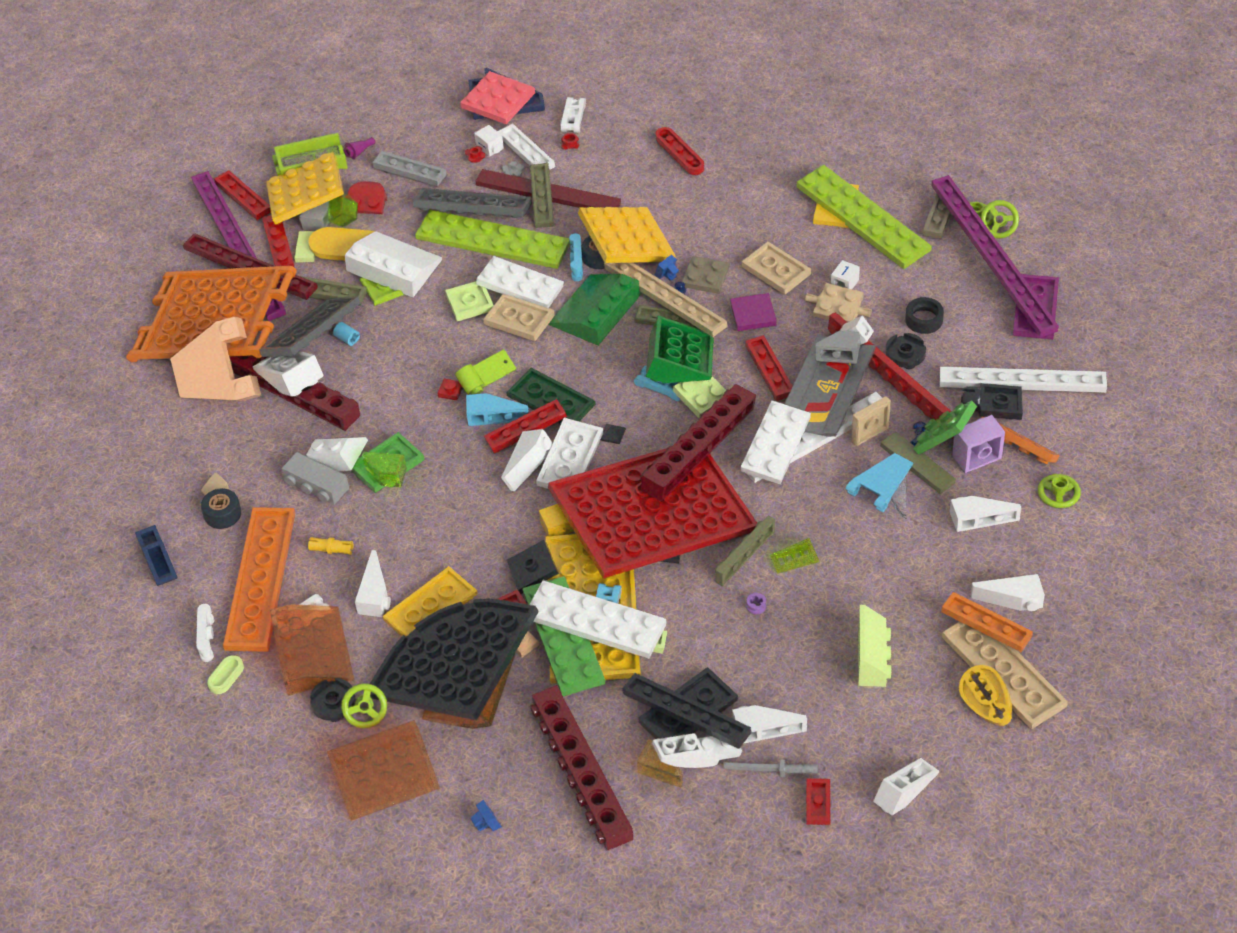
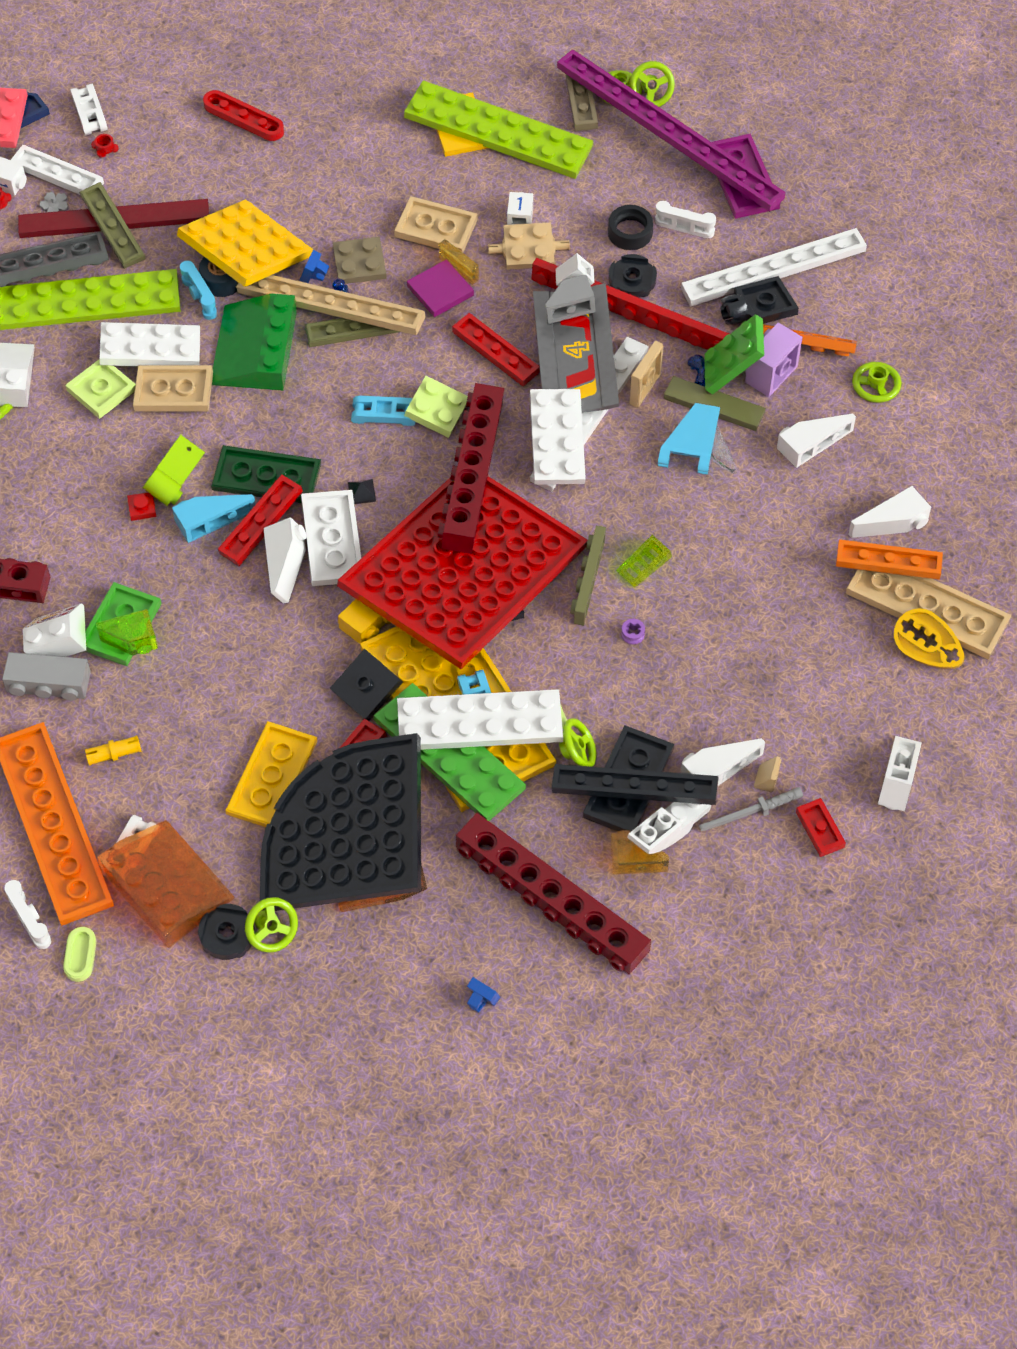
camera: 30 degrees left, 10 degrees up
(372, 594) = (199, 783): white slope -> none
(382, 770) = (335, 990): clear orange slope -> none
(658, 666) = (574, 745): none -> lime piece
(678, 353) = (388, 368): green slope -> none
(777, 298) = (464, 265): none -> clear yellow tile
(801, 747) = (768, 774): none -> tan slope
(873, 649) = (786, 636): yellowish green slope -> none
(970, 323) = (685, 220): none -> white plate

